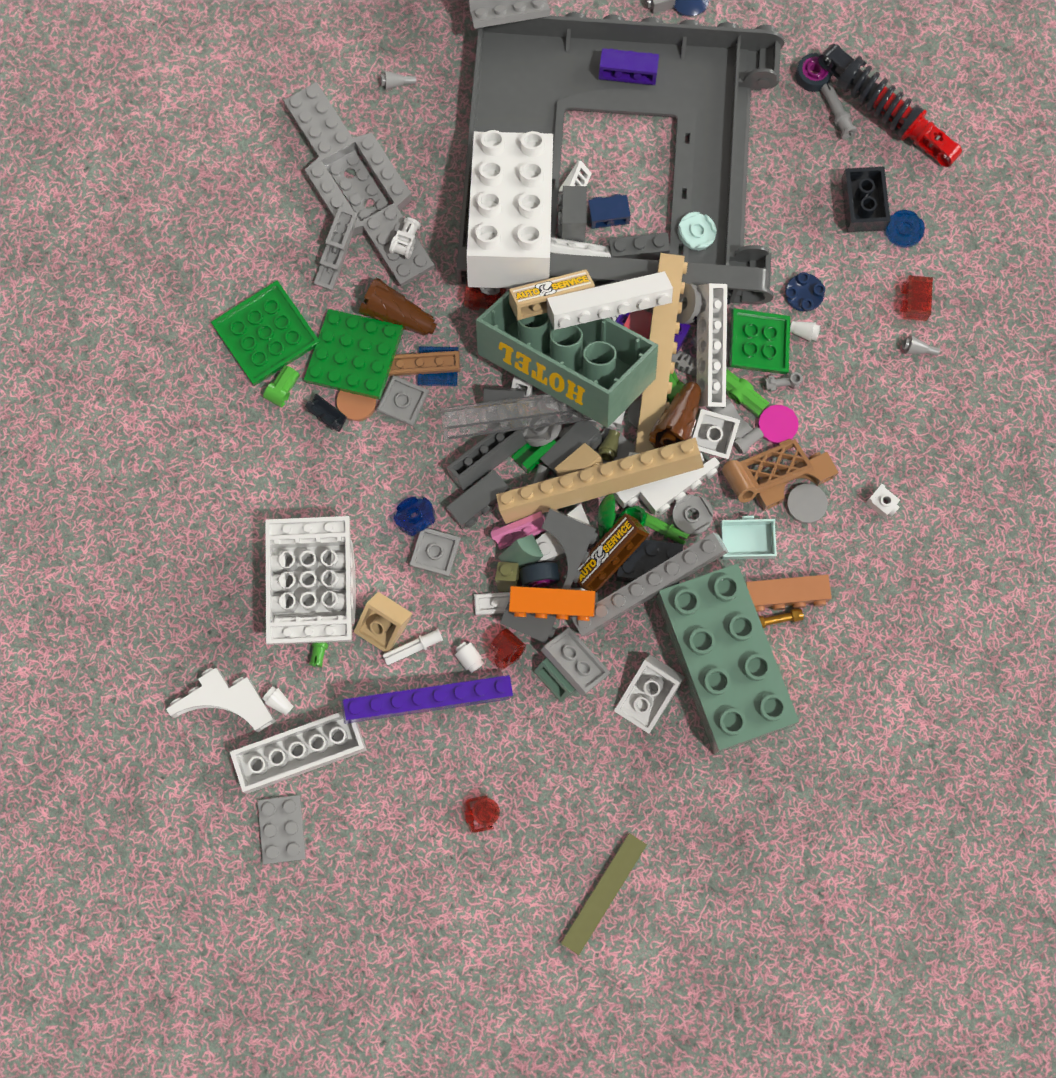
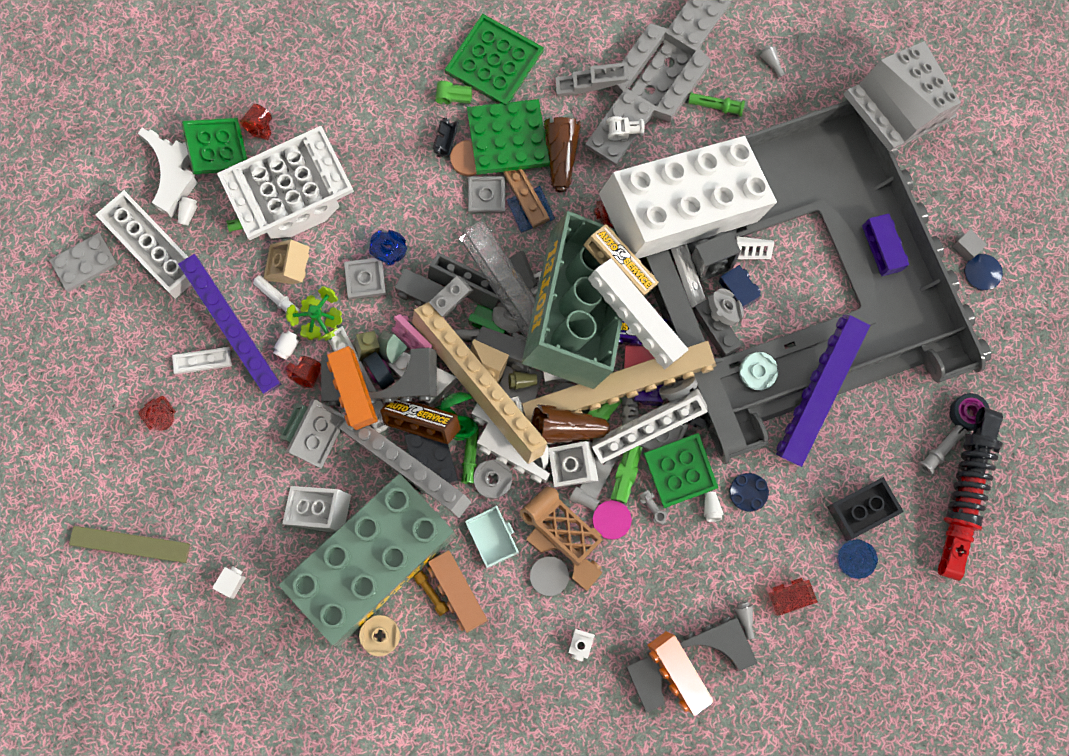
camera: 65 degrees right, 0 degrees up
(216, 589) = (256, 121): none -> clear red piece
(223, 642) = (213, 144): none -> green plate
(423, 140) = (726, 105): none -> bright green pin
(445, 748) = (202, 360): none -> white tile
(461, 603) = (312, 308): none -> lime plant
(501, 471) = (451, 296): none -> light grey brick
(626, 230) = (725, 307): none -> light grey plate
(686, 806) = (229, 582): none -> white brick
(743, 181) = (822, 389): none -> dark purple brick
(809, 679) = (371, 643): none -> tan plate
(933, 452) = (725, 638): none -> dark grey arch
(948, 422) = (680, 673): none -> brick

